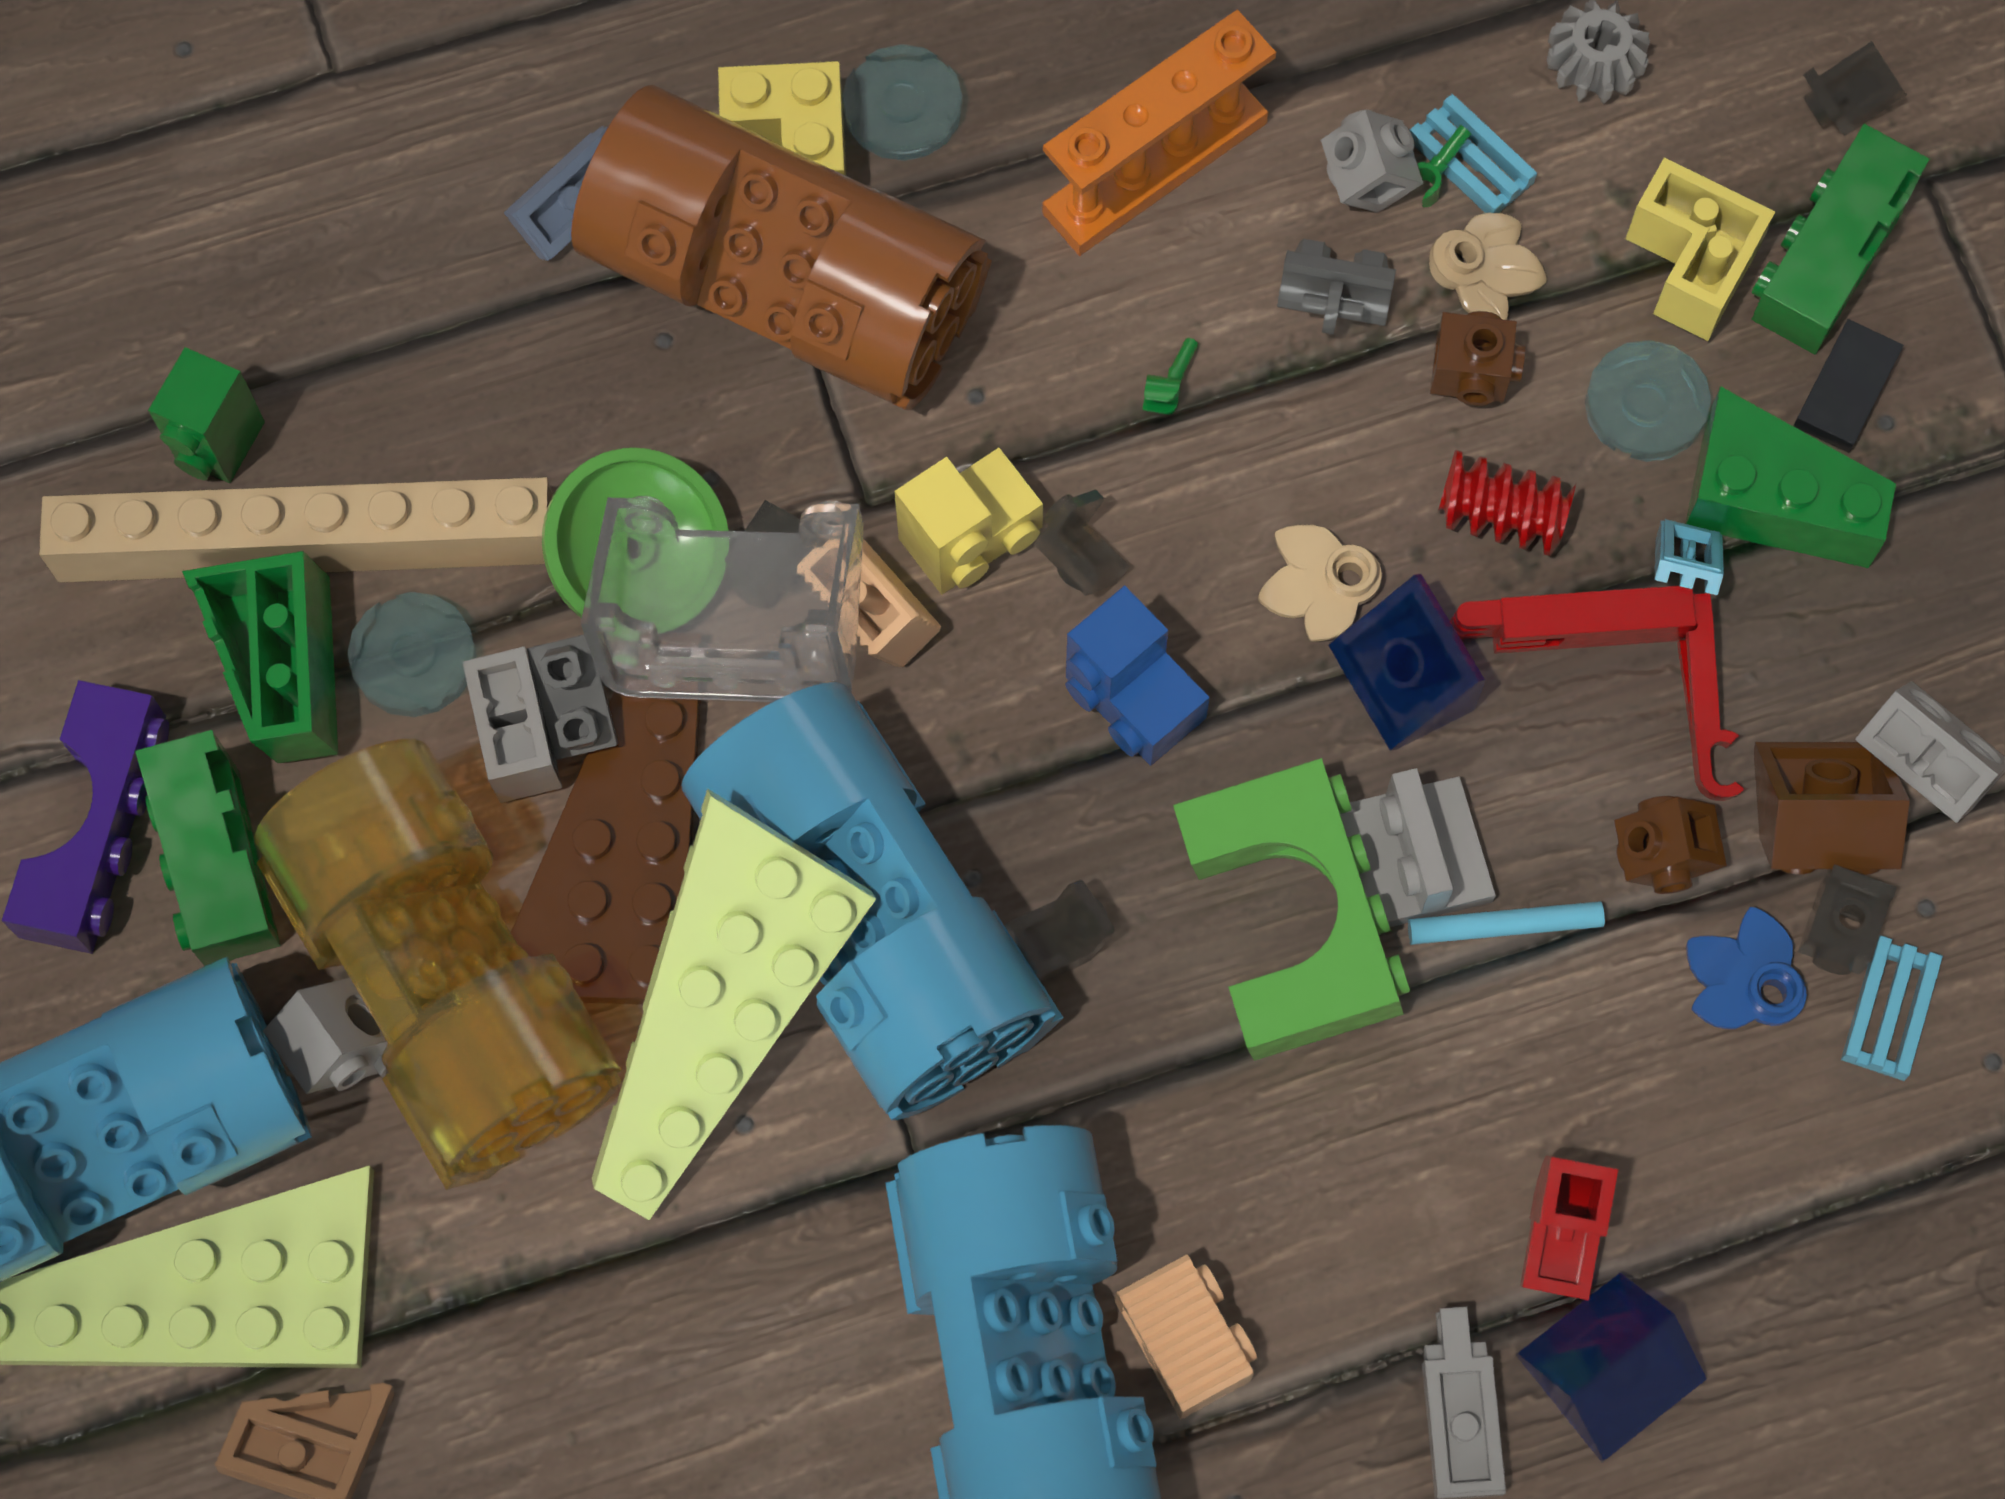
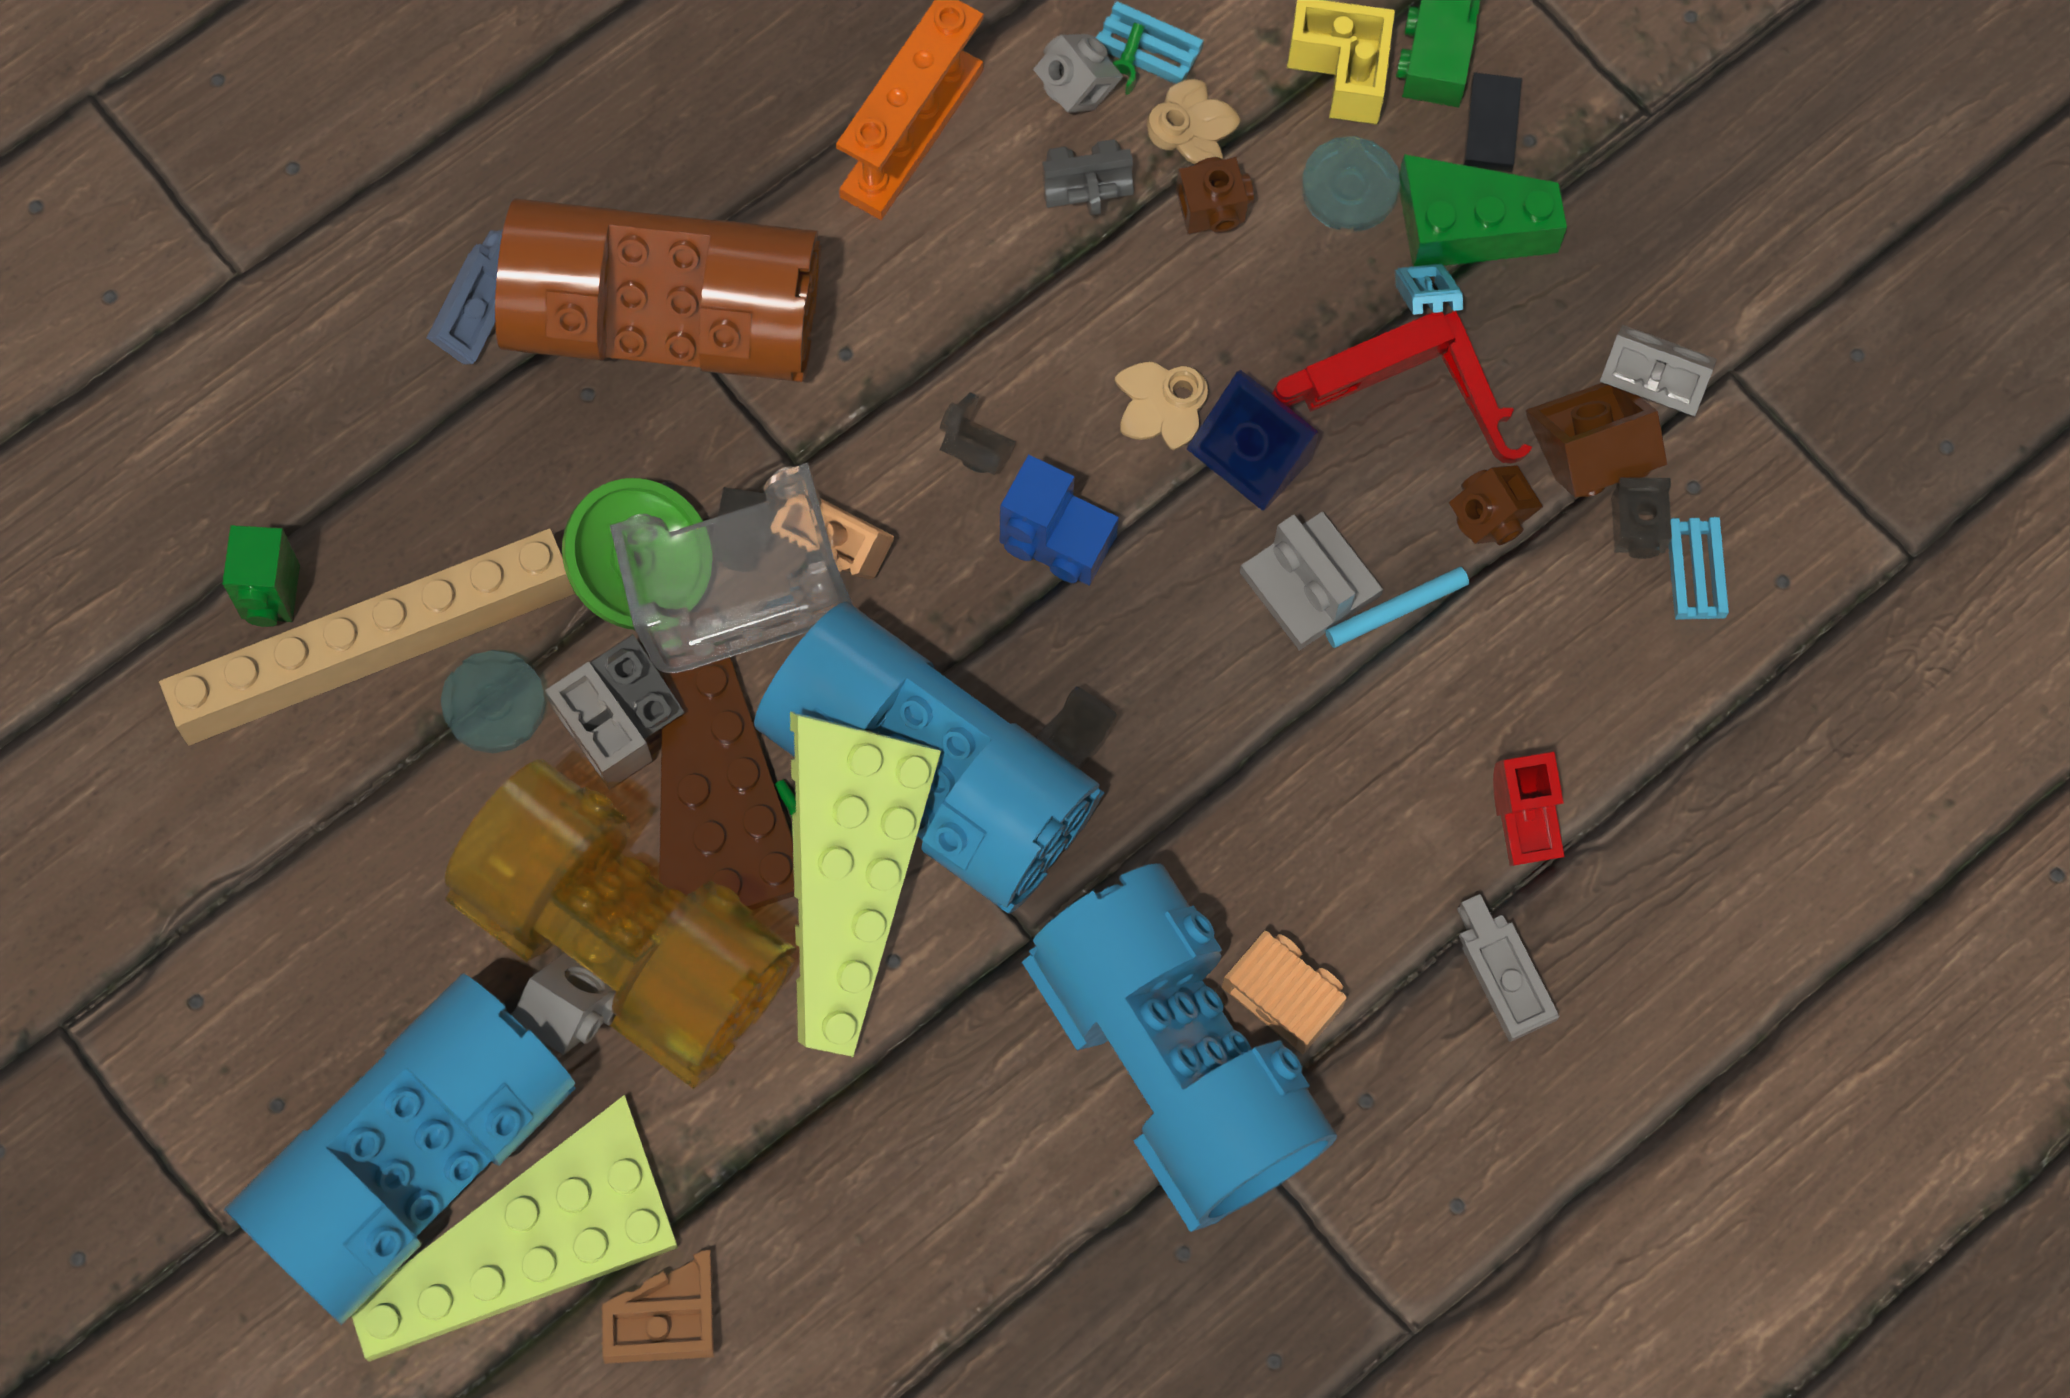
camera: 25 degrees left, 0 degrees up
(67, 892) = (300, 978): dark purple arch -> none
(207, 848) = (401, 904): green wedge -> none
(275, 648) = (389, 732): green wedge -> none
(789, 106) = (617, 178): light yellow brick -> none
(902, 102) = (698, 148): clear light blue tile -> none
(966, 518) = (880, 448): light yellow brick -> none
(1162, 393) = (988, 302): green hand -> none
(1299, 819) = (1219, 584): bright green arch -> none
(1505, 503) = (1277, 295): red piece -> none
(1614, 1364) = (1599, 896): clear blue slope -> none
(1739, 968) = (1578, 580): blue plate -> none

